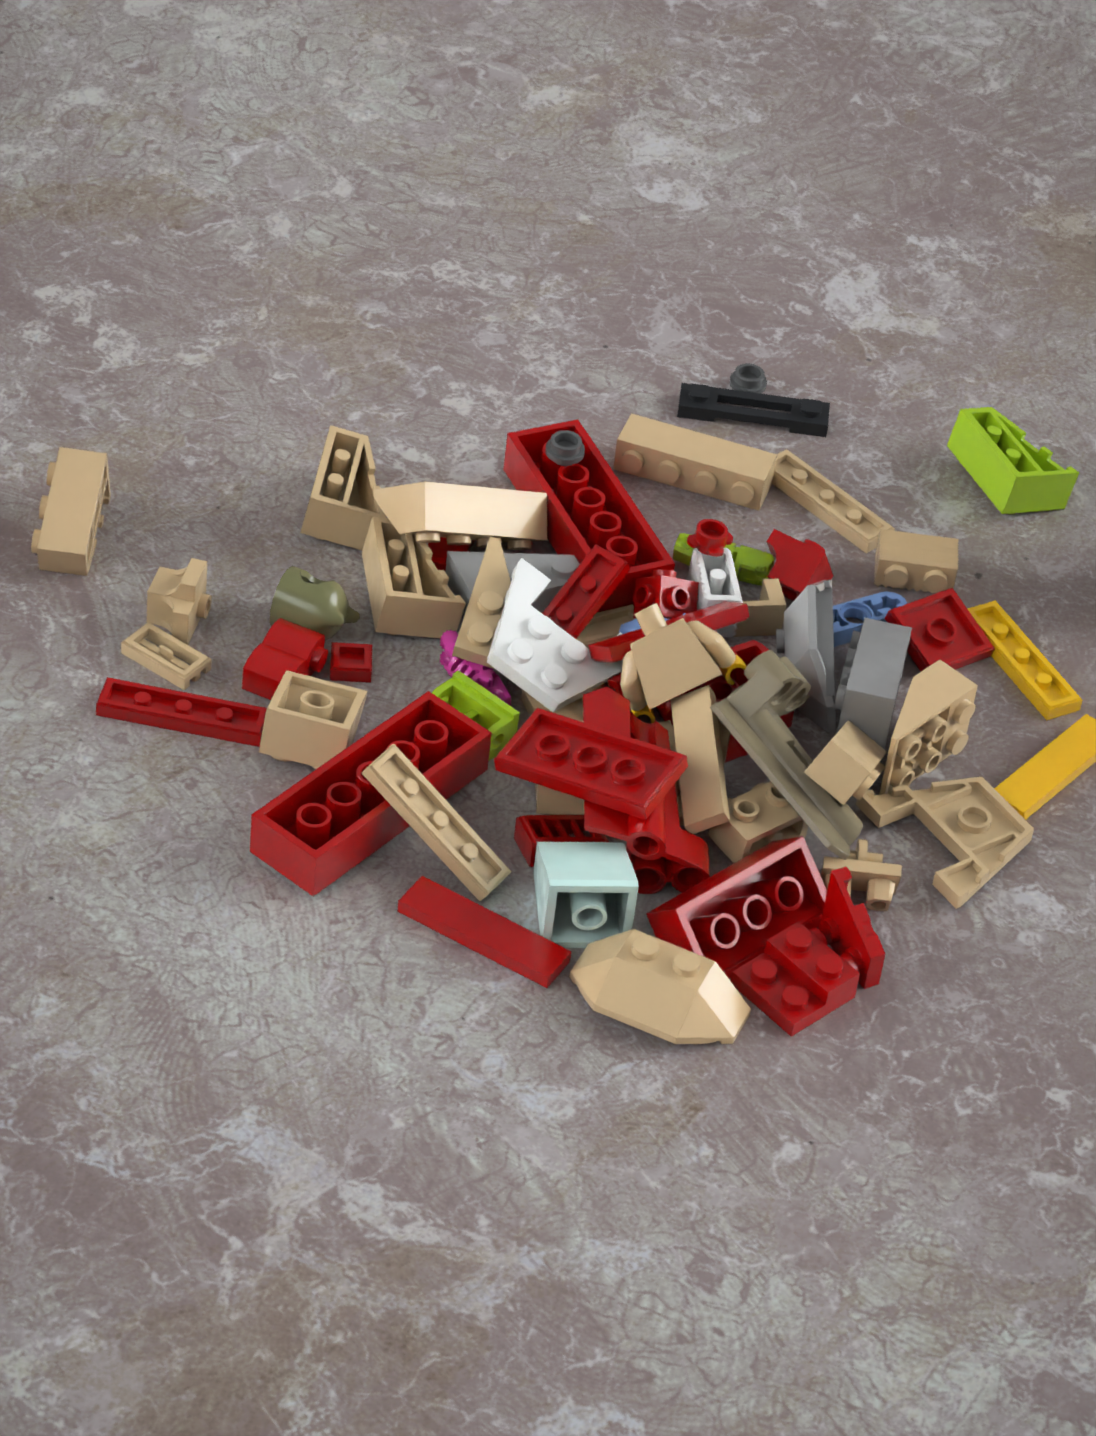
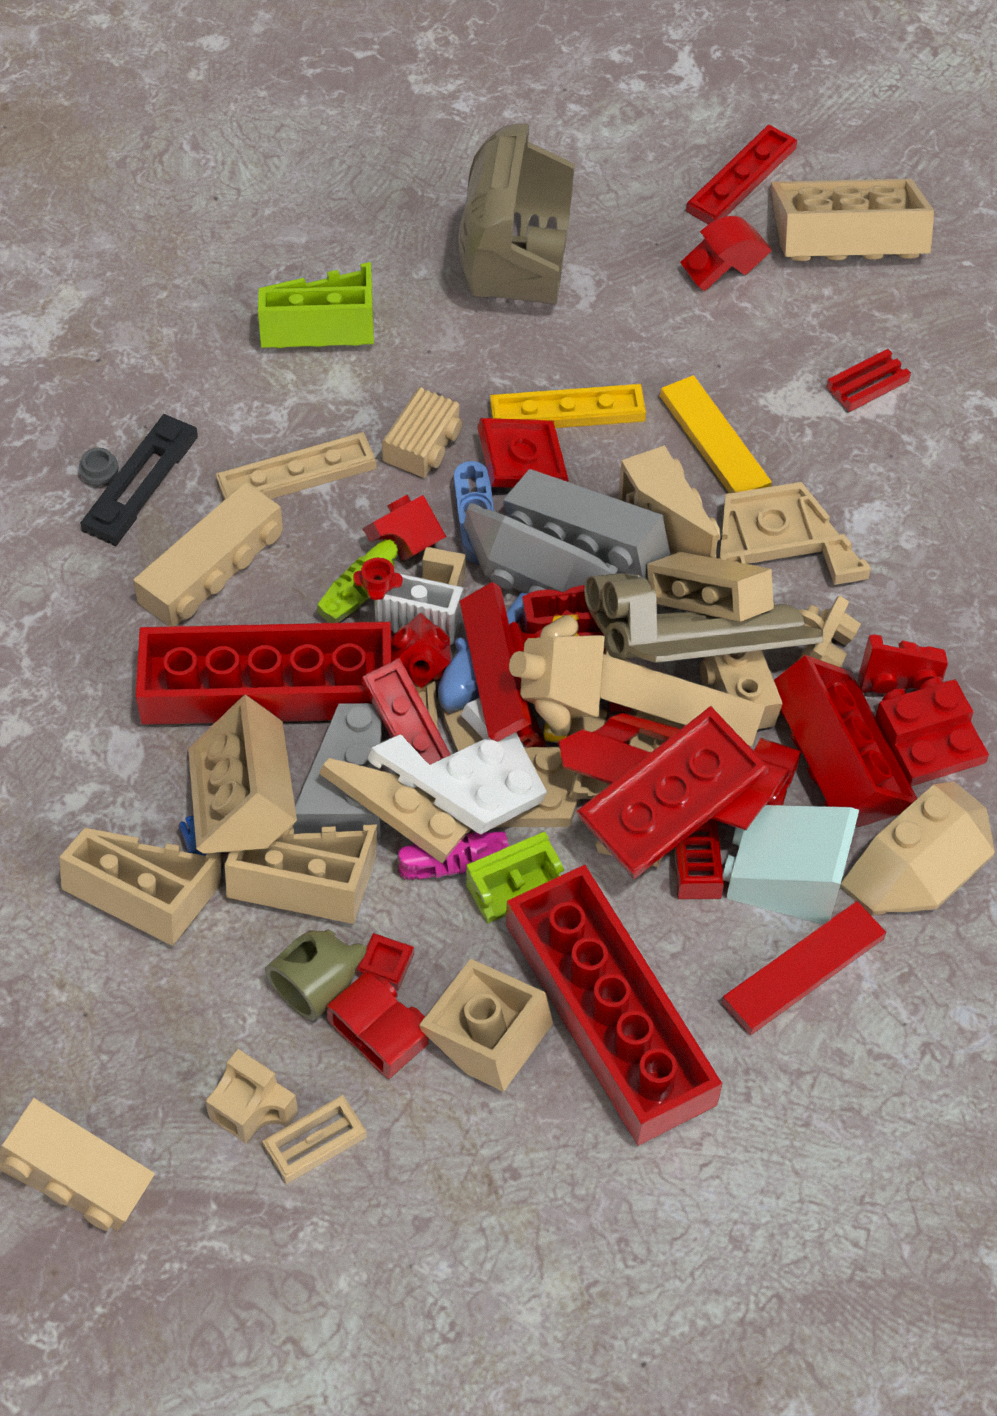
camera: 65 degrees left, 15 degrees up
(181, 711) = (407, 1149): red tile -> none
(436, 822) = (684, 957): tan tile -> none
(565, 448) = (195, 653): dark grey plate -> none

